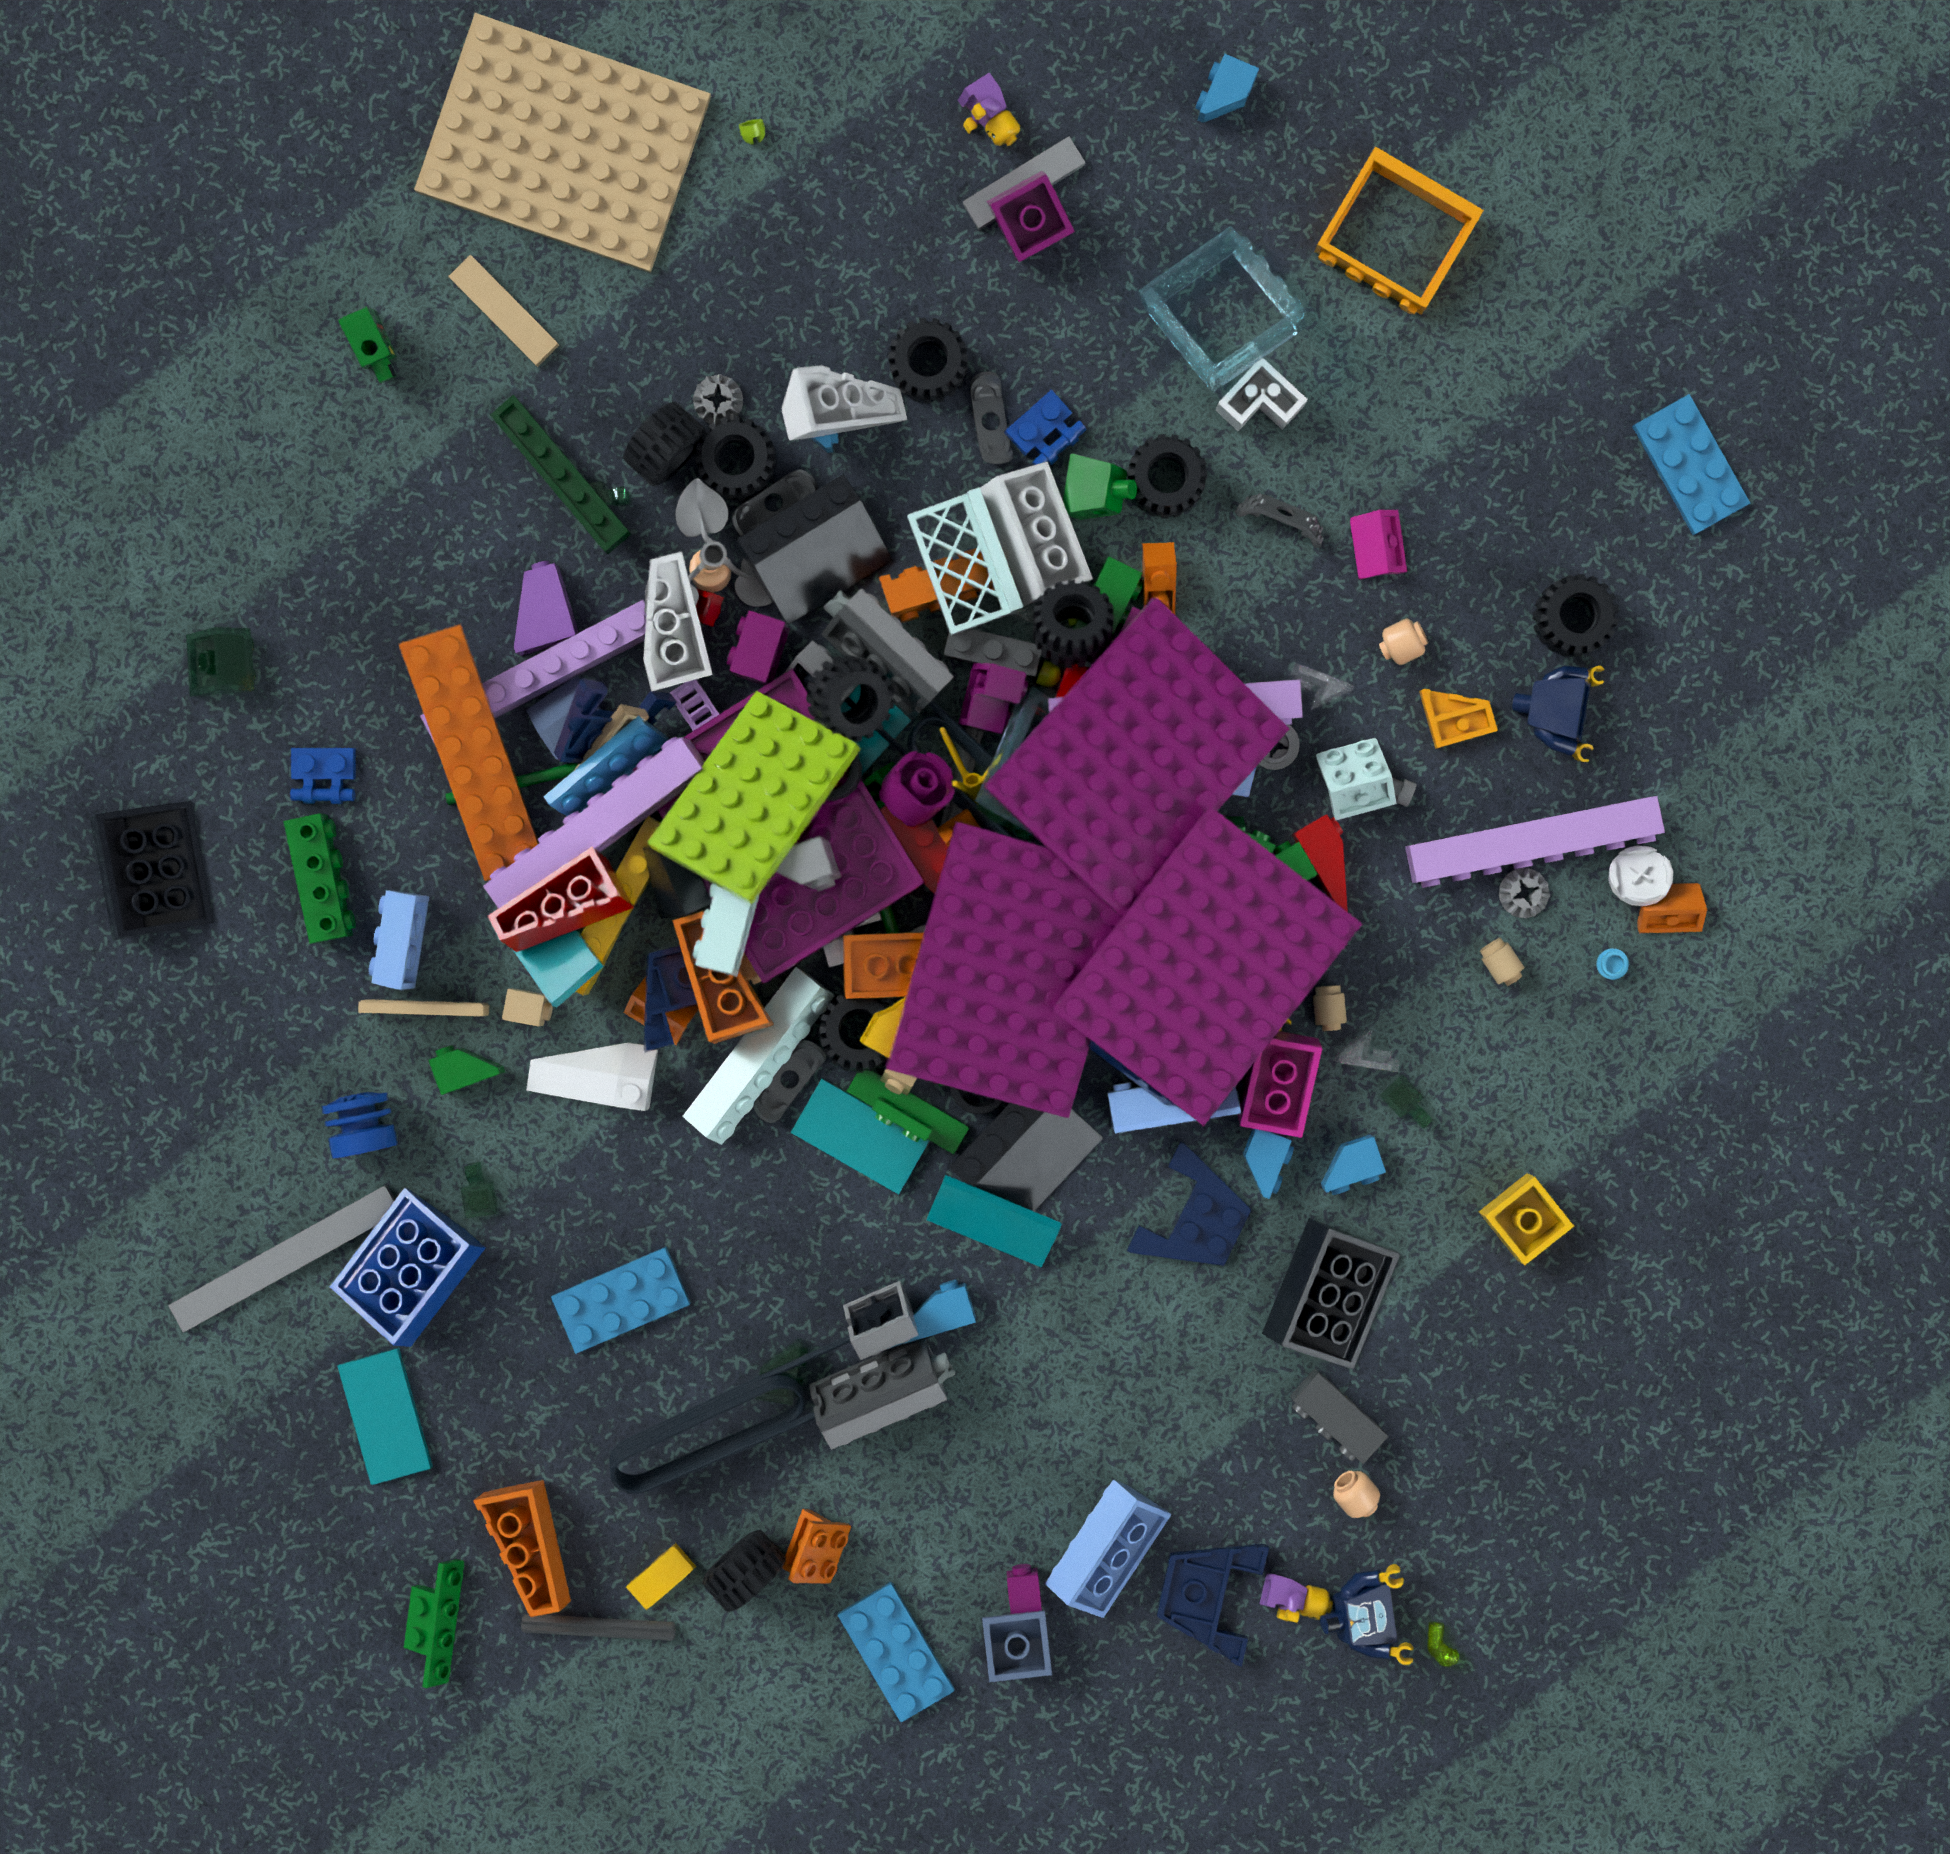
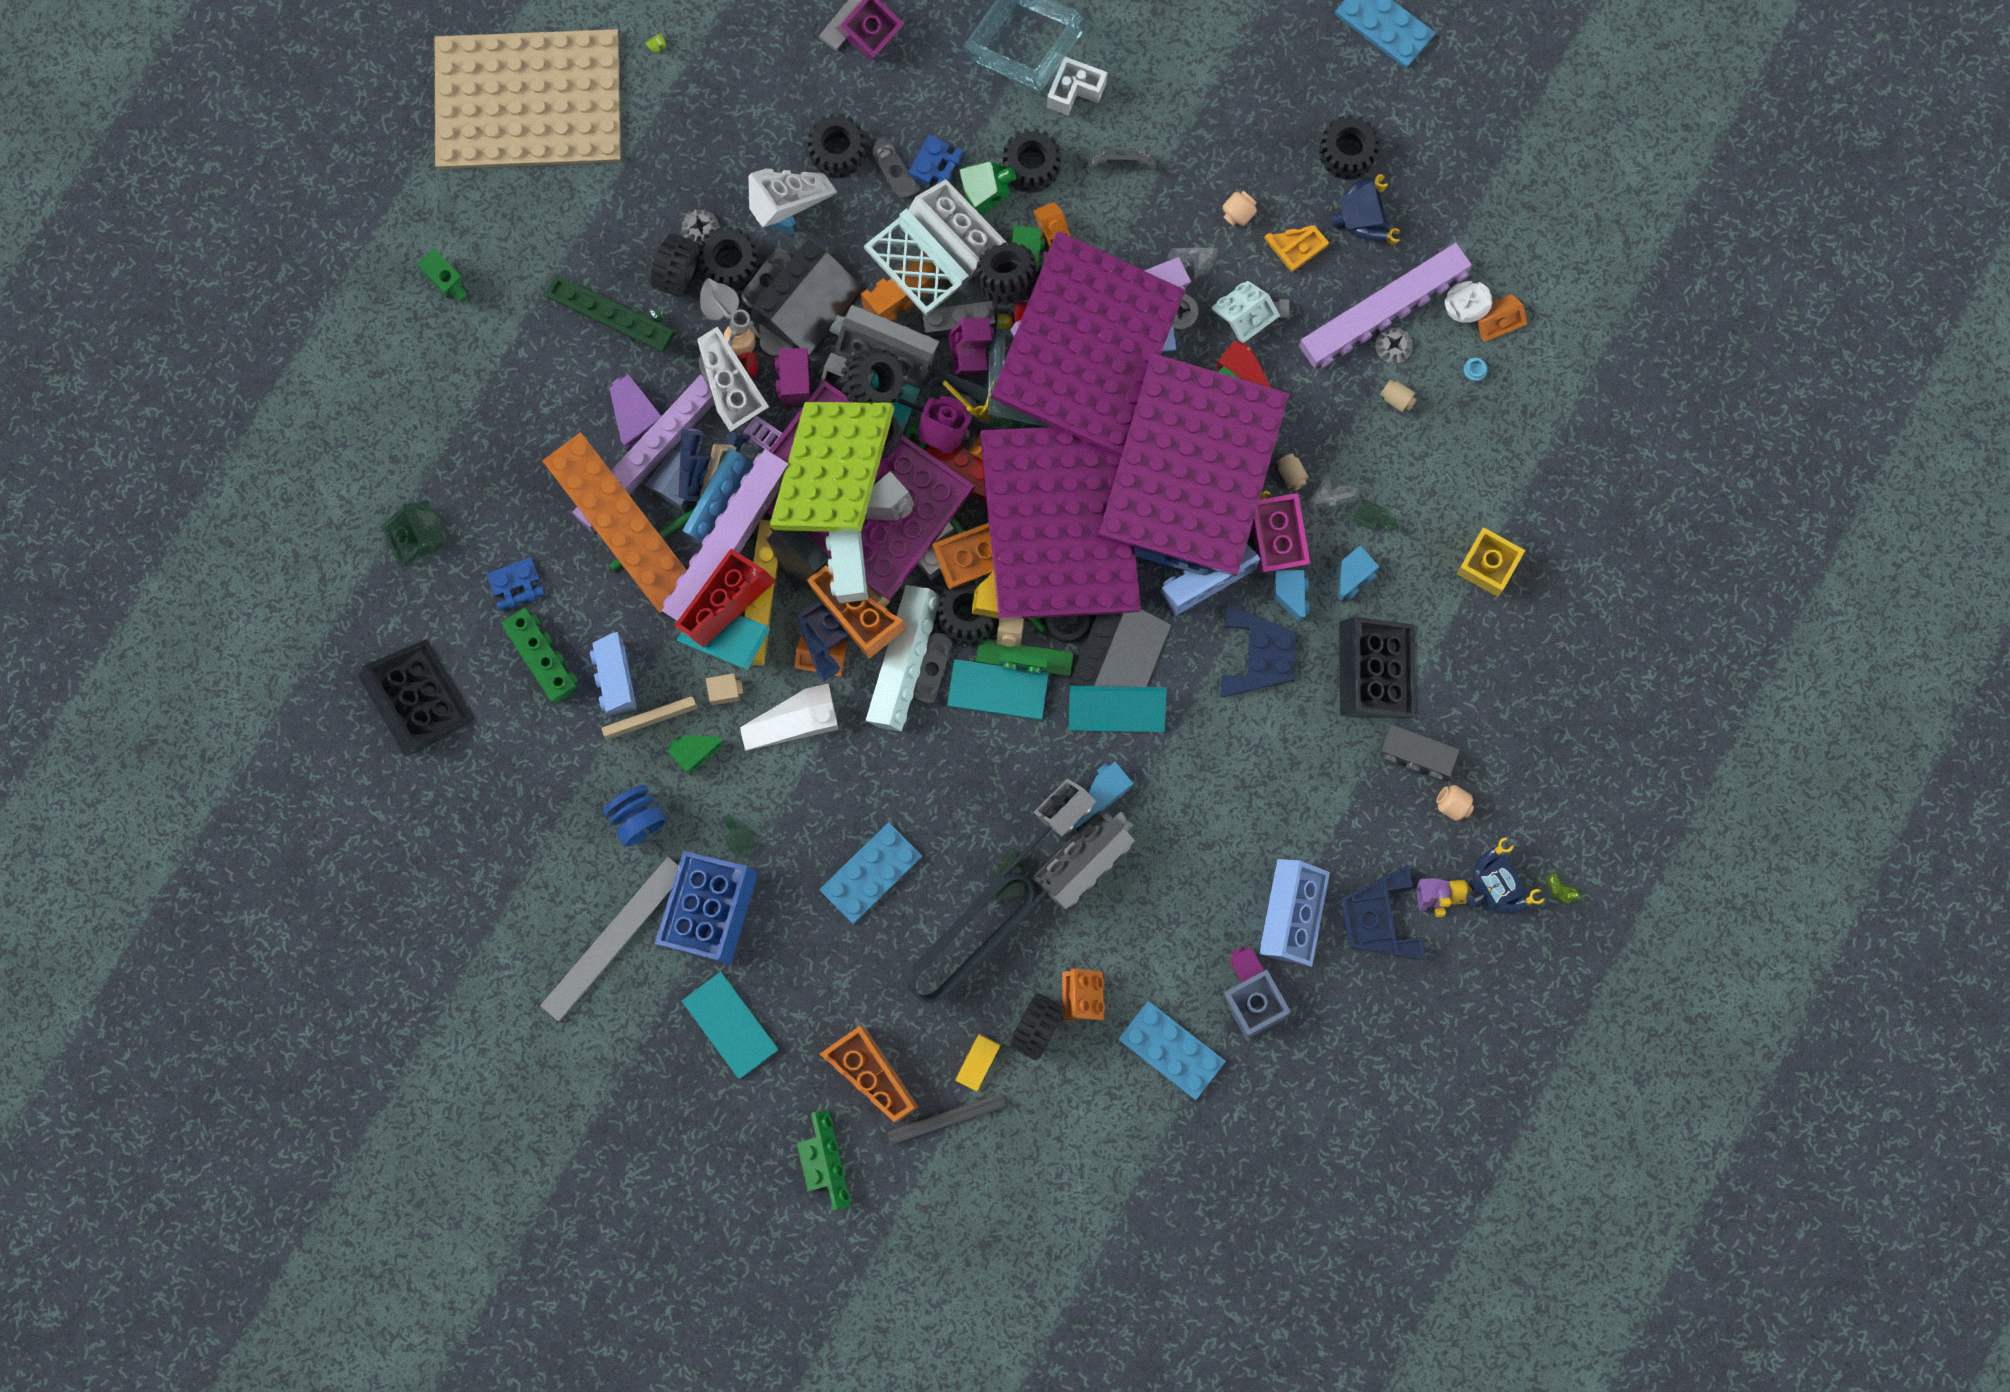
camera: 20 degrees left, 10 degrees down
(503, 310) = (527, 223): tan tile -> none
(1378, 543) = (1194, 152): dark pink panel -> none

